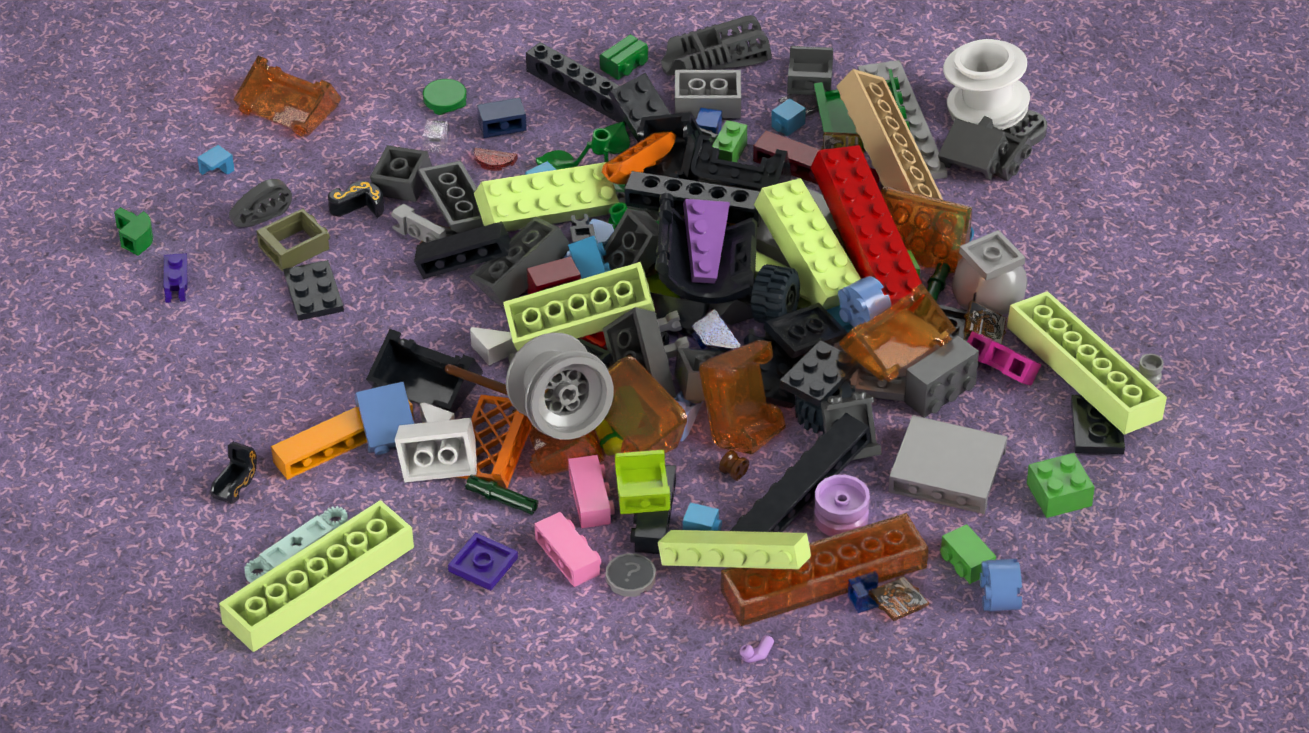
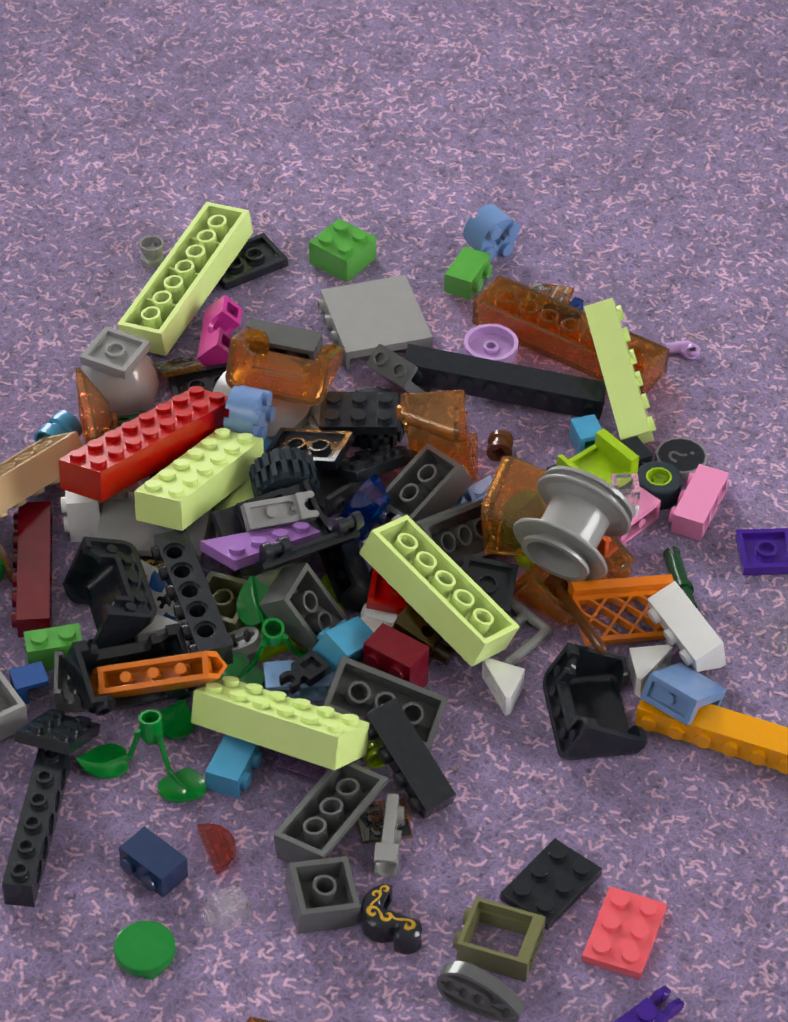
camera: 125 degrees left, 0 degrees up
(243, 304) = (624, 932): none -> coral plate
(590, 471) = (629, 486): none -> clear brick
(608, 534) = (661, 481): none -> black wheel
(727, 258) = (278, 511): none -> light grey plate

